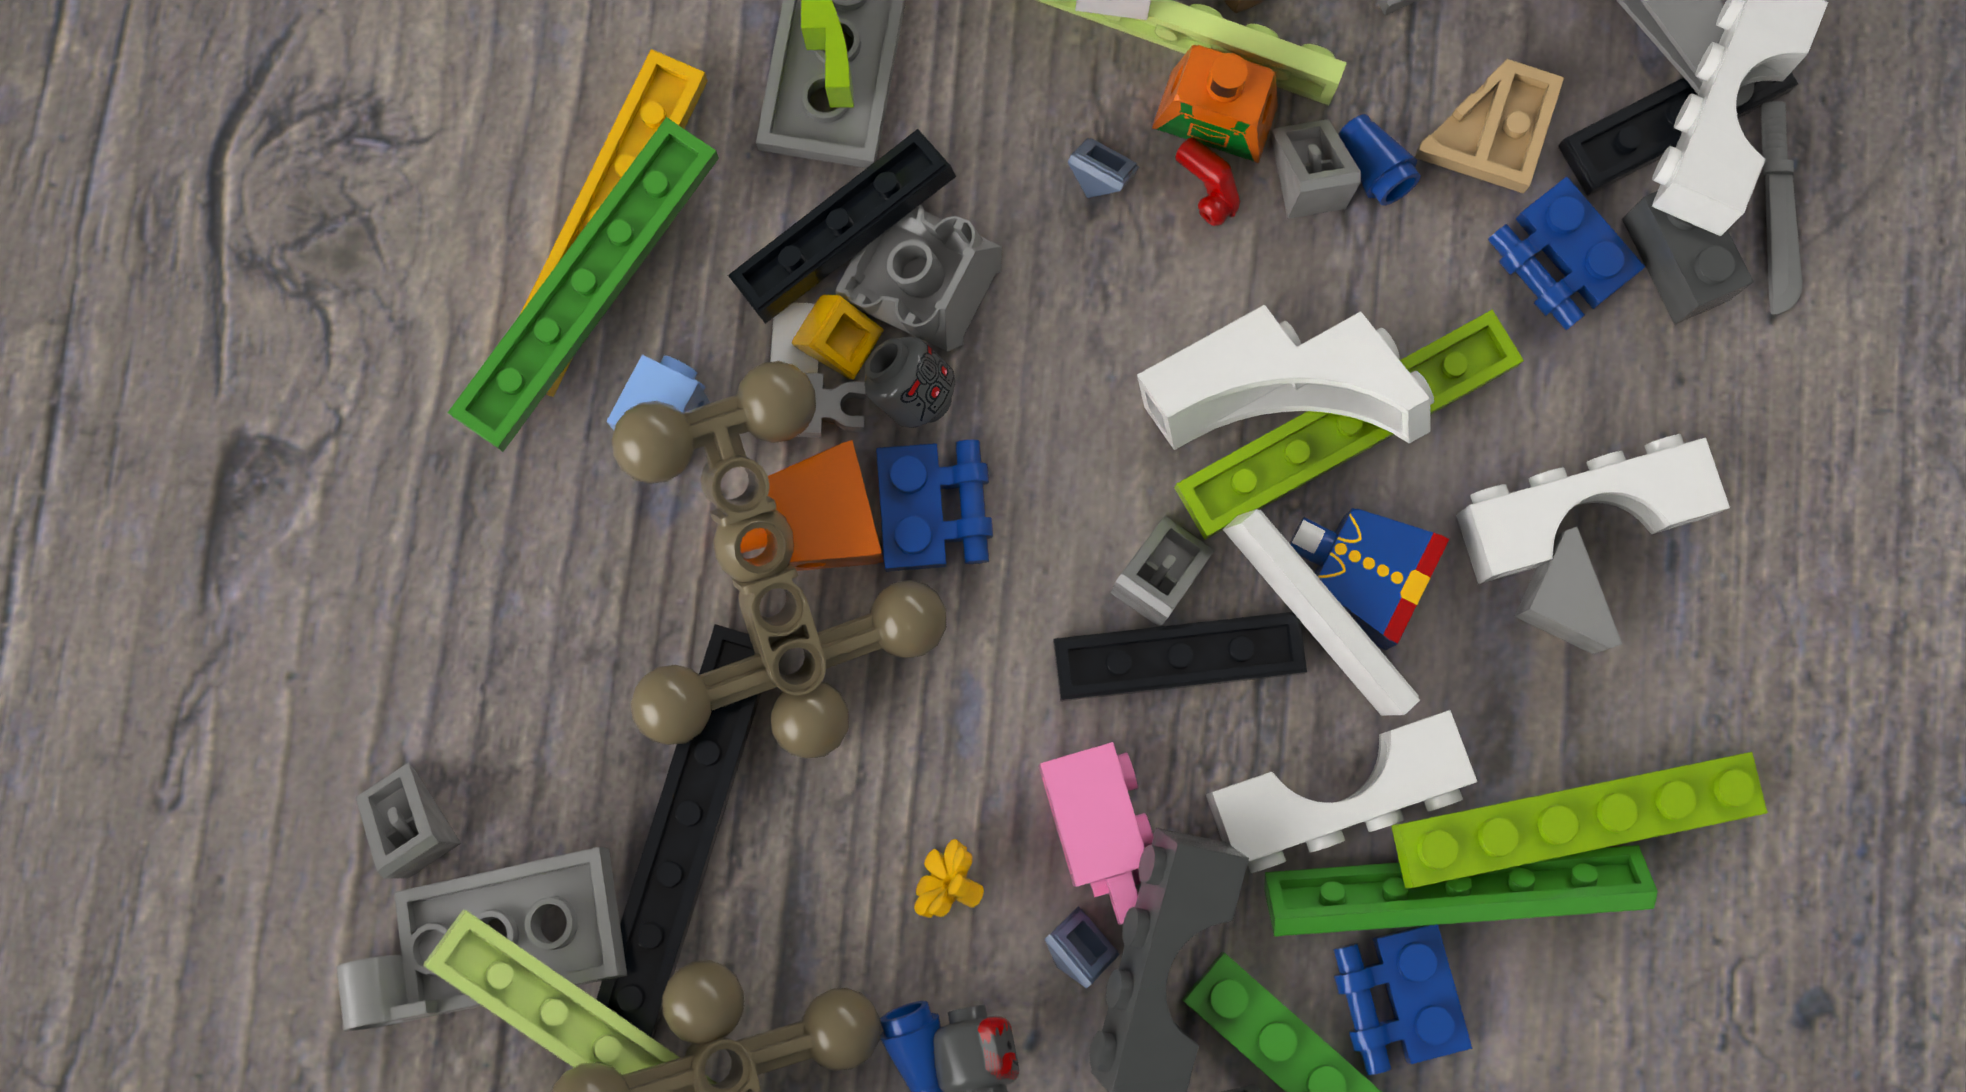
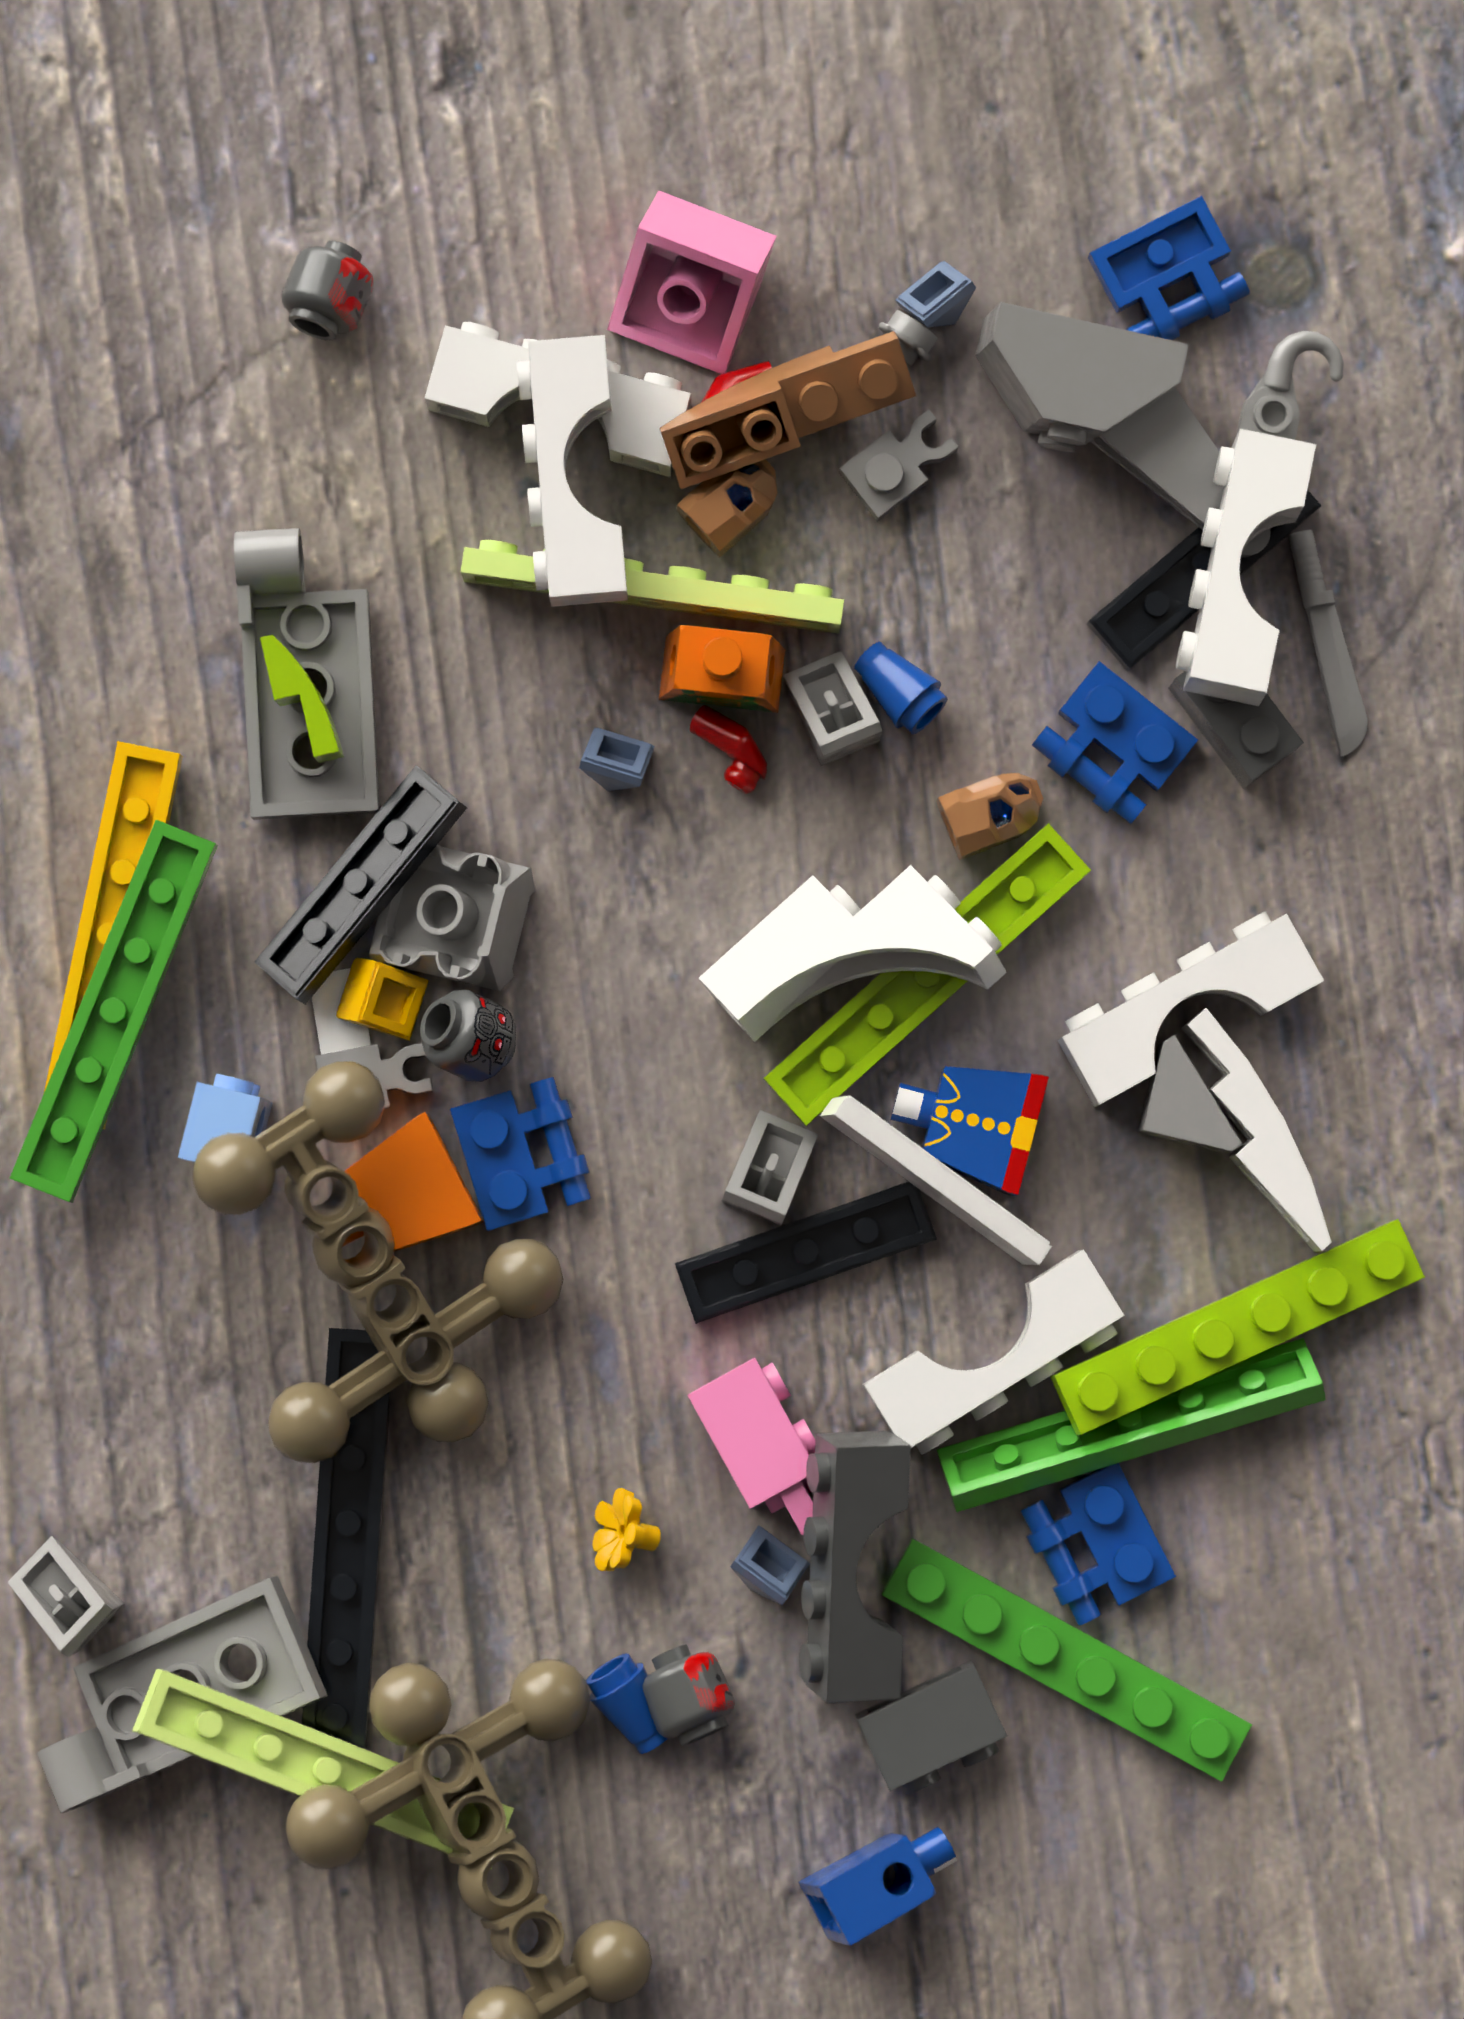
camera: 15 degrees left, 5 degrees up
(1436, 290) = (990, 812): none -> medium nougat rock
(1498, 127) = (1017, 624): tan wing -> none
(1644, 665) = (1270, 1152): none -> white slope

